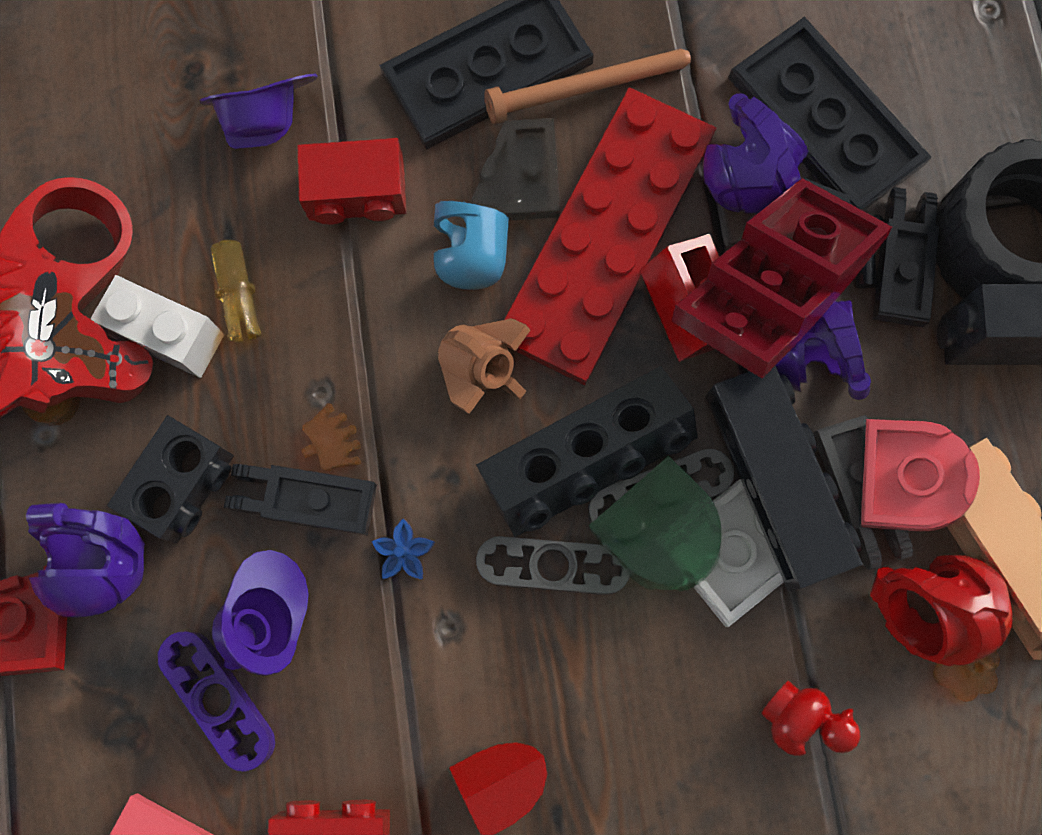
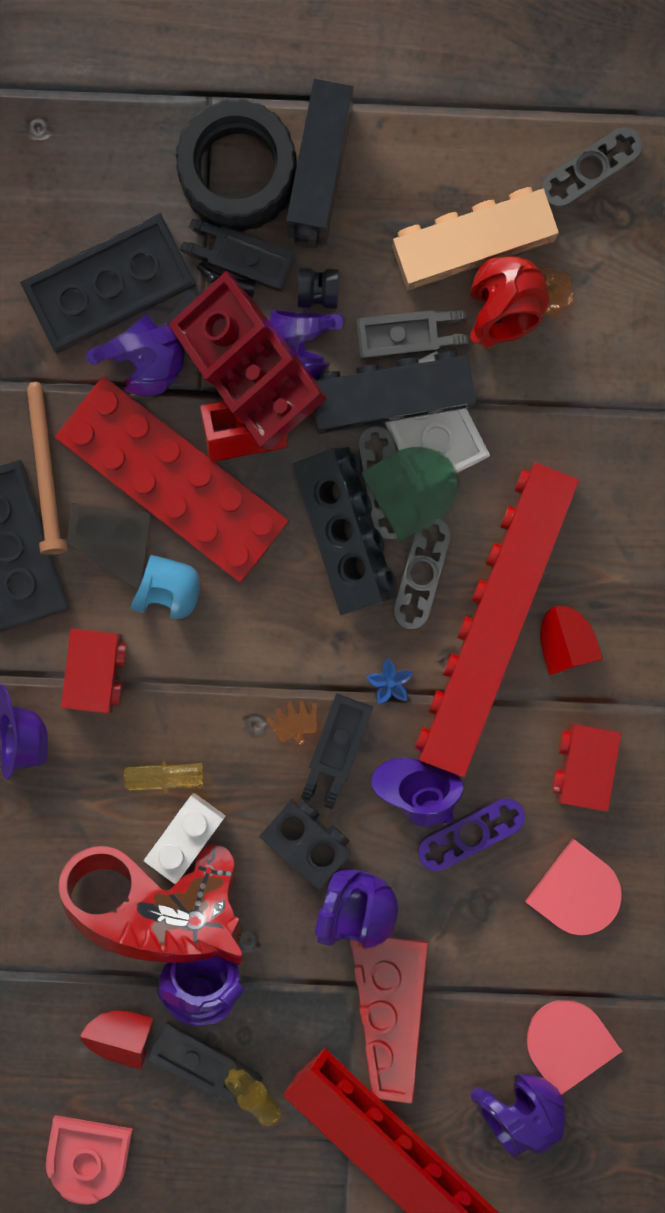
camera: 80 degrees left, 10 degrees up
(479, 360) = (259, 598): nougat brick -> none
(511, 679) = (497, 620): none -> red brick
(799, 715) = (560, 420): red animal -> none
(892, 359) = (318, 288): none -> black wheel
(916, 476) = (411, 298): coral tile -> none

